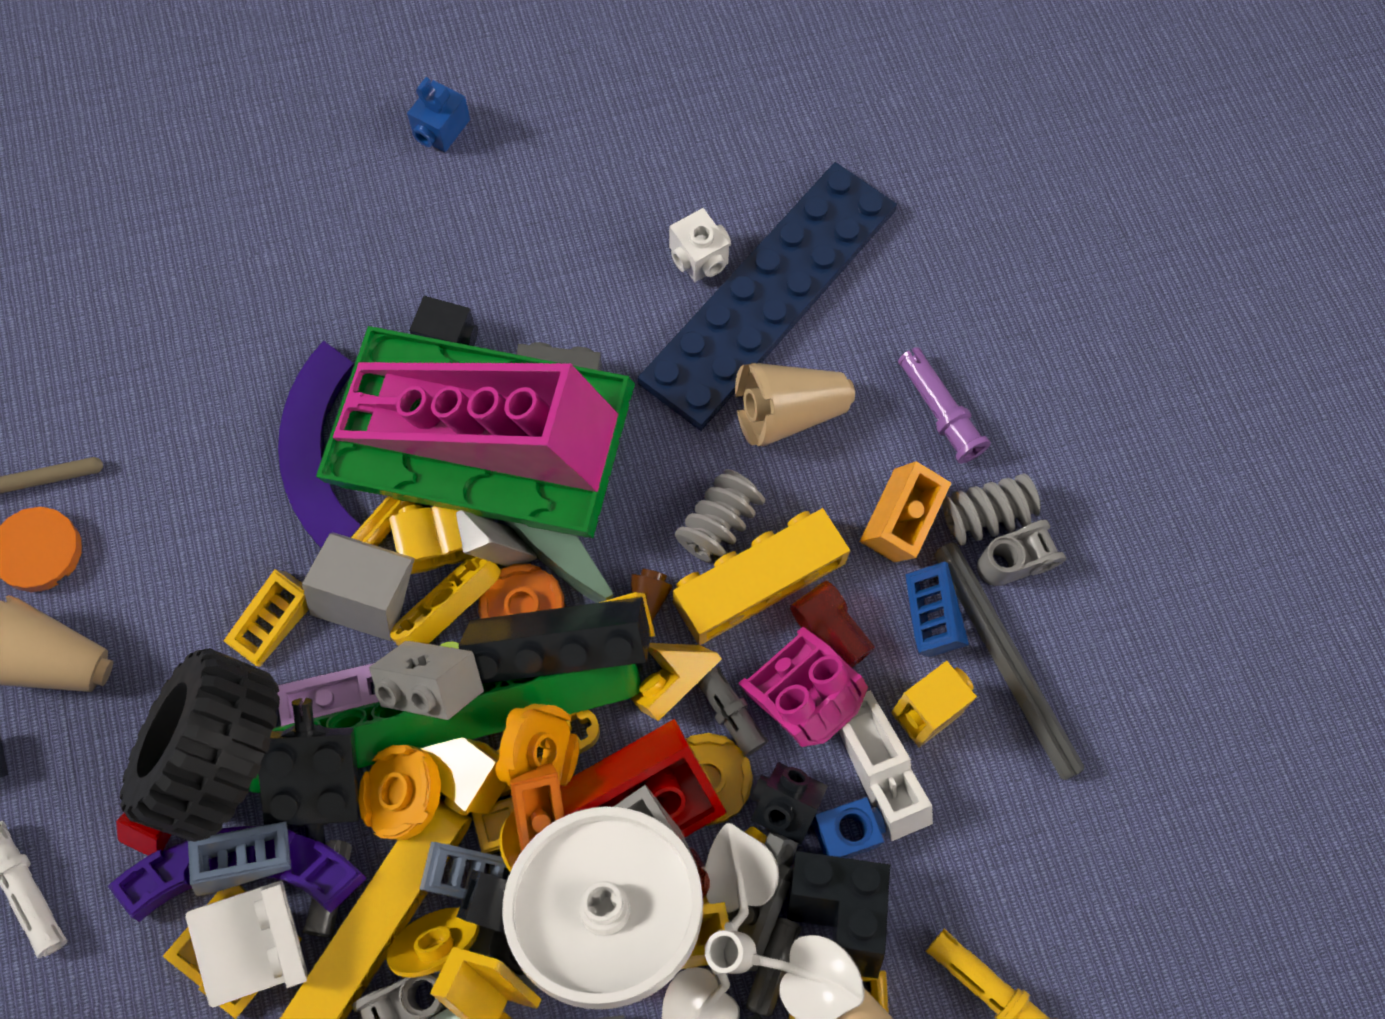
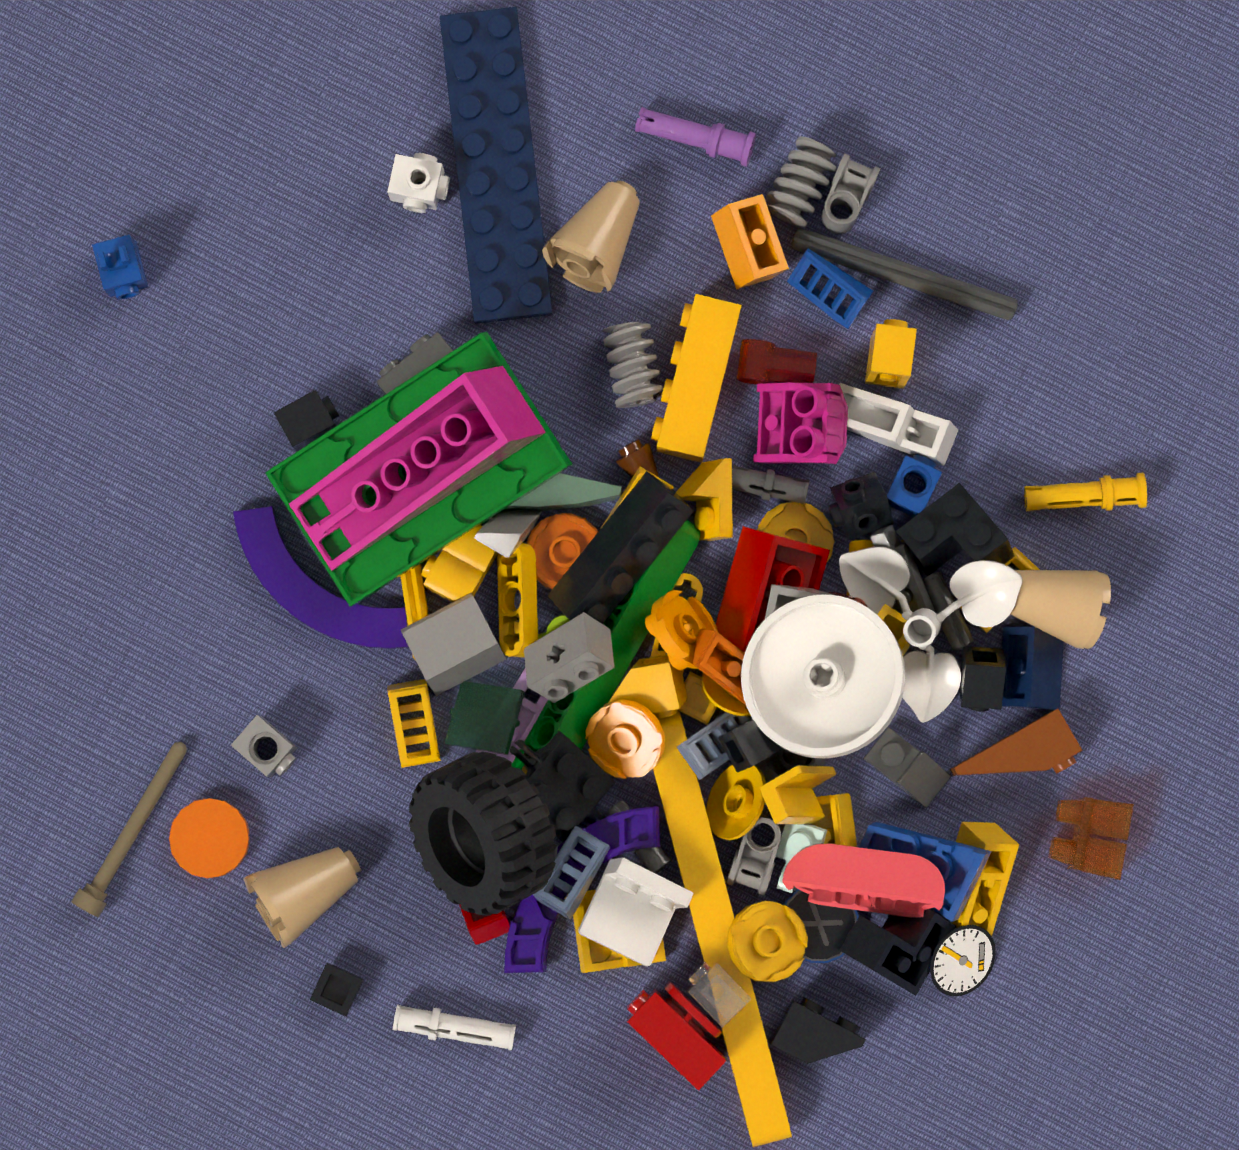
camera: 40 degrees left, 15 degrees up
(137, 508) = (248, 743): none -> light grey brick
(321, 664) = (484, 717): none -> clear green piece

